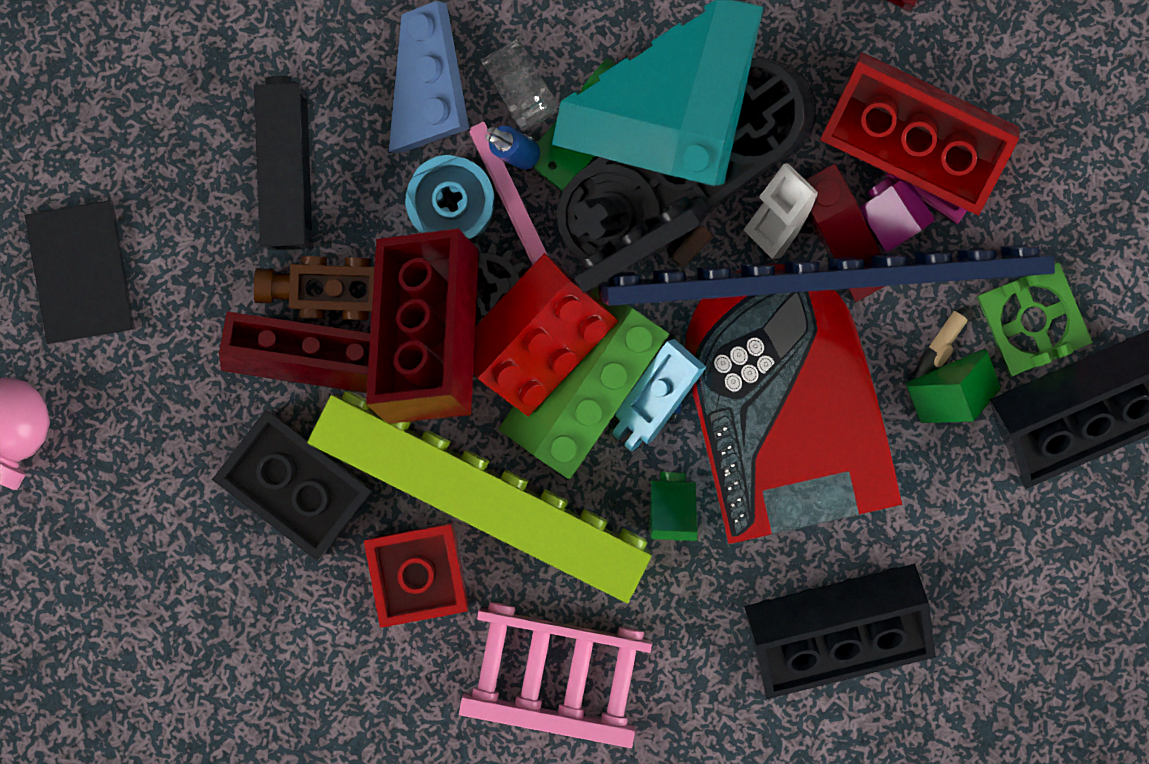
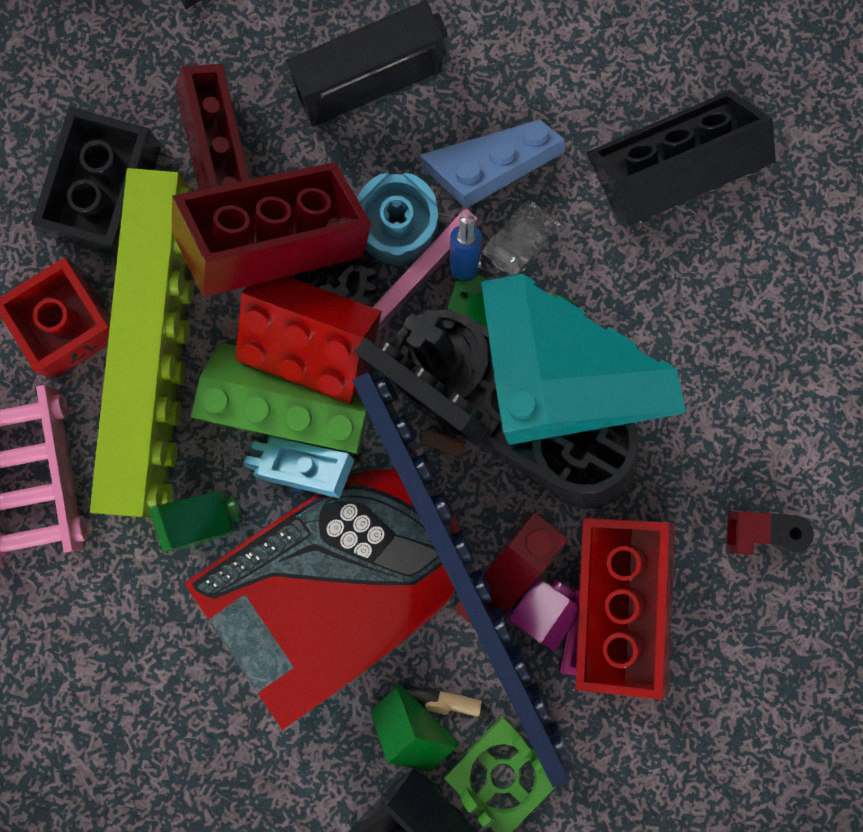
camera: 65 degrees right, 5 degrees down
(335, 282) = (273, 121): reddish brown brick -> none
(783, 211) = (506, 512): white slope -> none
(841, 631) = (154, 716): black slope -> none

